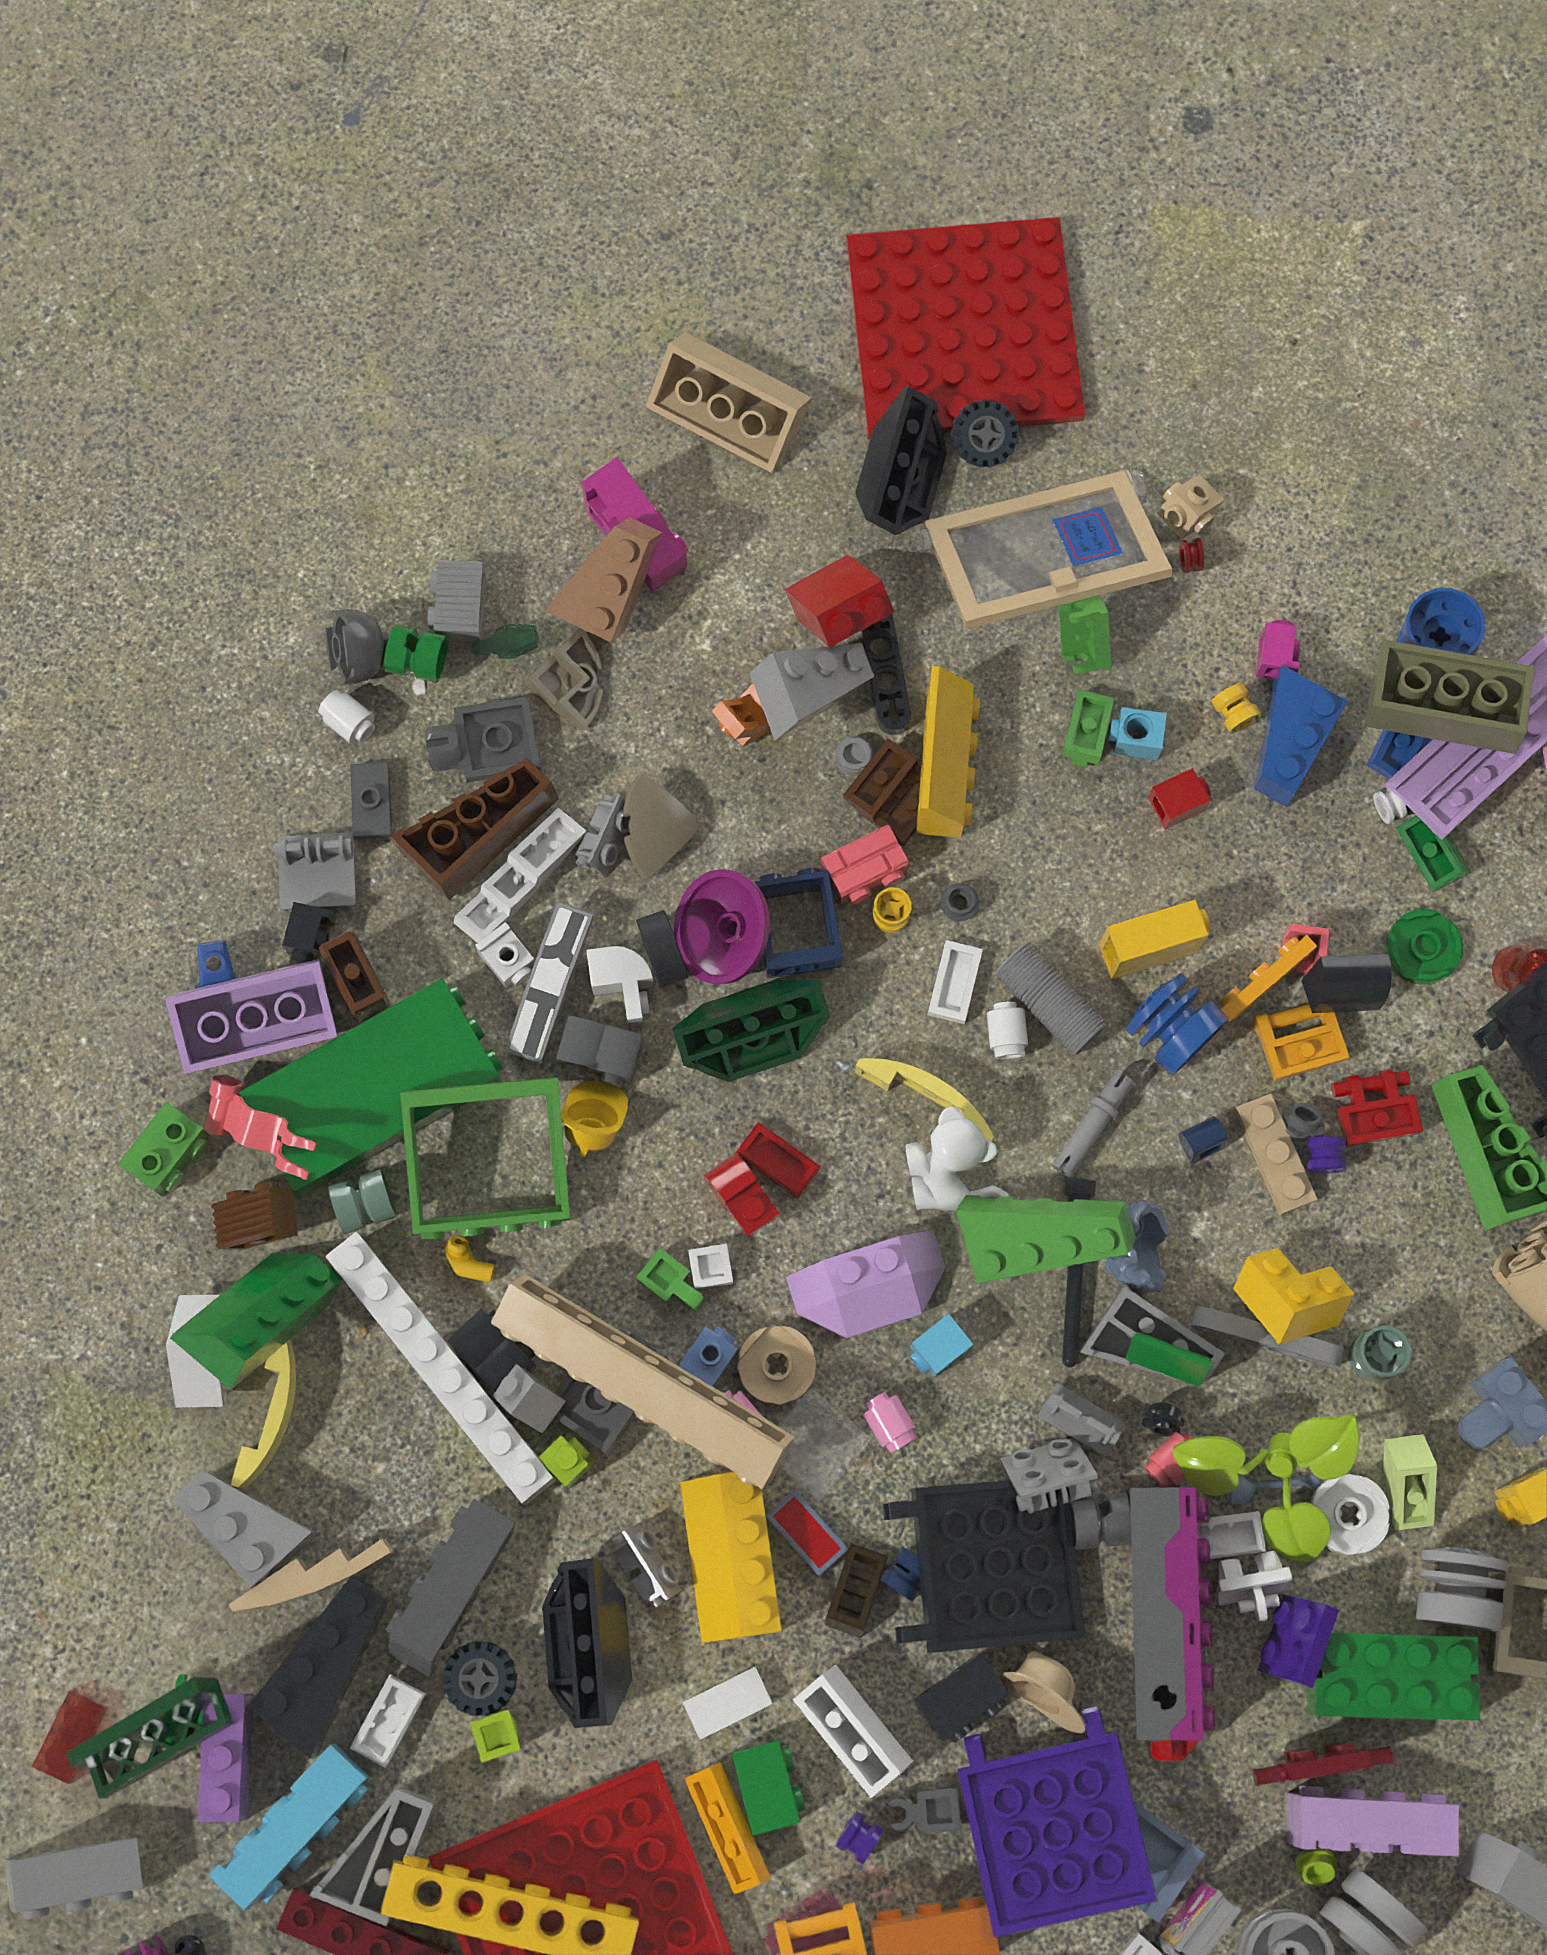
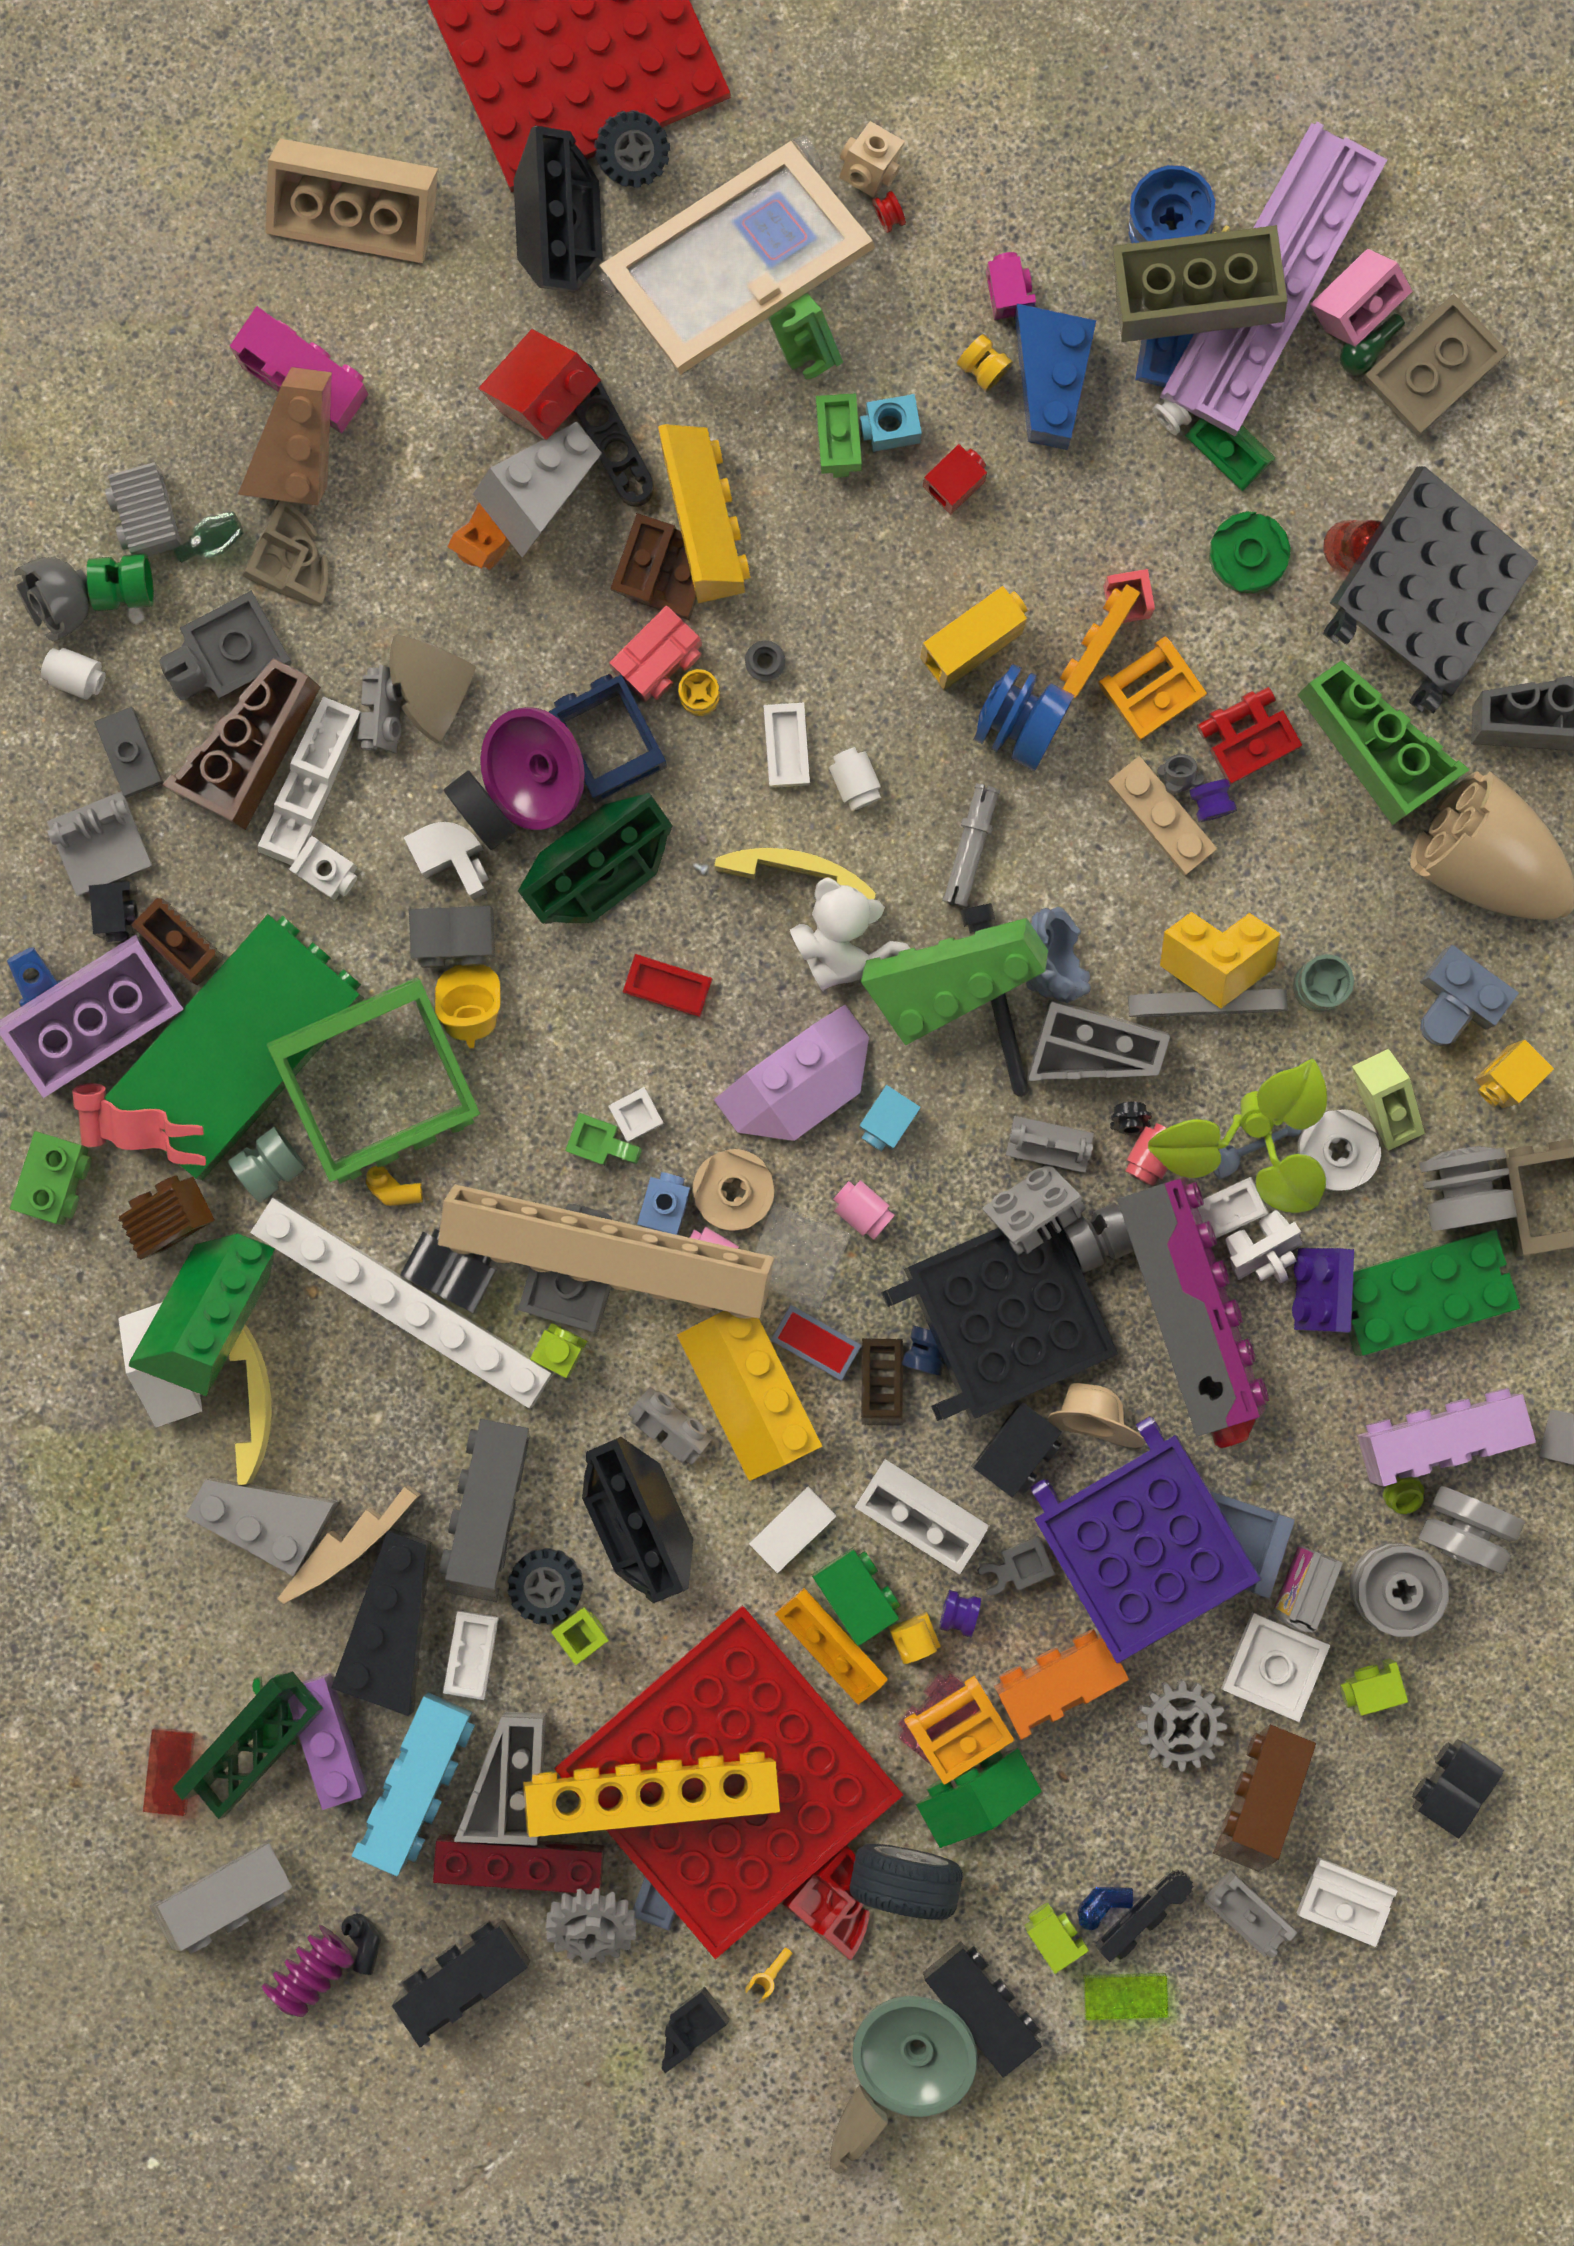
camera: 15 degrees left, 10 degrees up
(529, 1398) = (500, 1304): light grey brick -> none
(549, 982) = (377, 881): slope -> none
(741, 1195) = (643, 1034): red brick -> none
(809, 1847) = (915, 1638): none -> yellow leg
(853, 755) = (607, 541): light grey tile -> none
(1056, 1001) = (901, 736): light grey piece -> none
(1168, 1359) = (1116, 1059): green slope -> none
(1203, 1139) = (1085, 825): dark blue brick -> none
(1335, 1759) = (1368, 1403): dark red plate -> none
(1348, 983) = (1183, 618): black brick -> none

